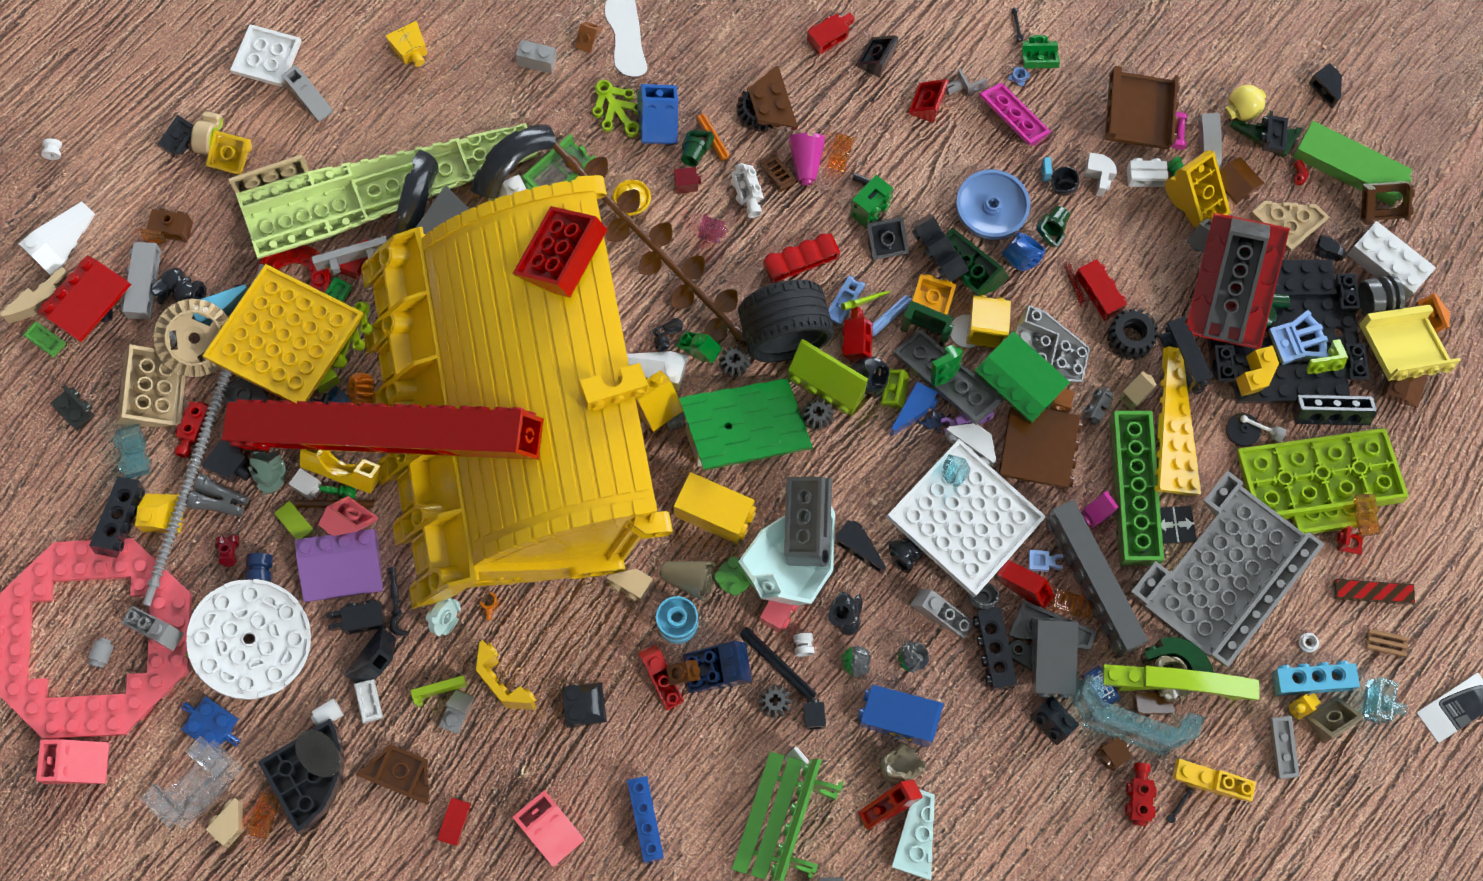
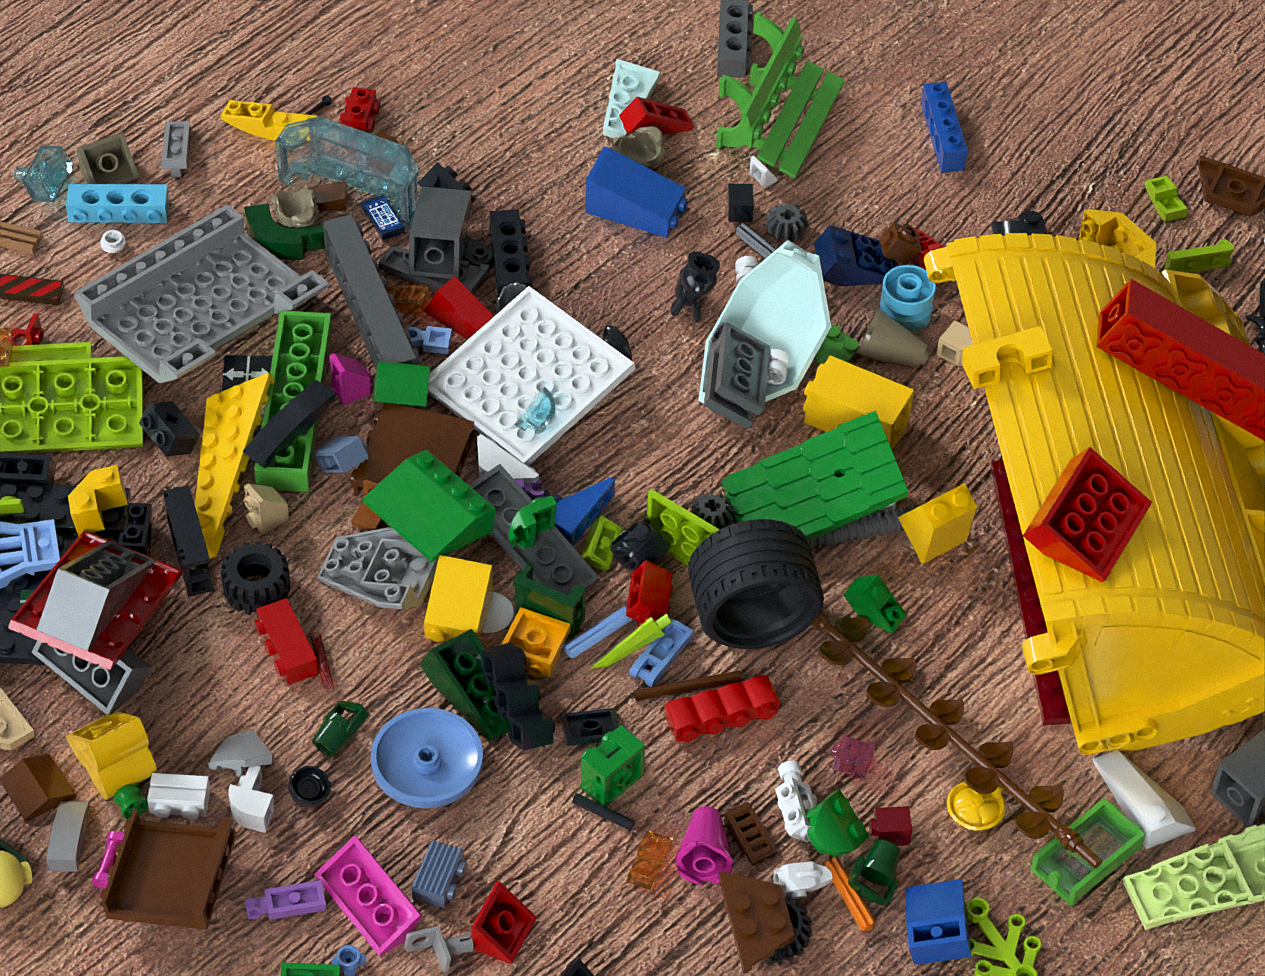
camera: 175 degrees left, 20 degrees down
(454, 821) = (1166, 143): red slope -> none
(456, 711) = (1174, 238): light grey slope -> none
(460, 759) = (1165, 199): none -> lime slope
(507, 154) = (1159, 857): black brick -> none
(548, 828) = (1060, 129): coral slope -> none
(669, 362) = (937, 582): white wedge -> none
(672, 326) = (912, 634): black piece -> none
(723, 169) = (835, 826): none -> green slope
(731, 355) = (832, 581): dark grey gear -> none
(744, 137) = (801, 878): none -> white hand
(777, 543) = (777, 367): none -> white wheel
(838, 276) = (687, 685): none -> reddish brown bar
(856, 661) = (680, 246): dark grey piece -> none
(857, 543) = (671, 369): black slope -> none
(913, 656) = (613, 251): dark grey piece -> none
(941, 612) = (574, 295): light grey slope -> none
(973, 129) = (438, 874): none -> sand blue brick
(1024, 252) = (394, 694): blue piece -> none
(1046, 169) = (334, 810): medium azure tile -> none
(1057, 494) = (401, 384): none -> green slope
(1063, 108) = (288, 901): none -> medium lavender plate
(1092, 435) = (341, 454): none -> sand blue brick
(1101, 398) = (325, 504): dark grey hinge -> none
(1113, 202) = (241, 751): none -> light grey slope
(1135, 442) = (289, 422): none -> black slope
(1150, 677) = (312, 192): lime slope -> none
(1212, 454) = (169, 428): none -> black brick
(1242, 433) = (133, 467): black piece -> none
(1277, 433) = (84, 456): hinge -> none
(1304, 705) = (140, 174): yellow piece -> none

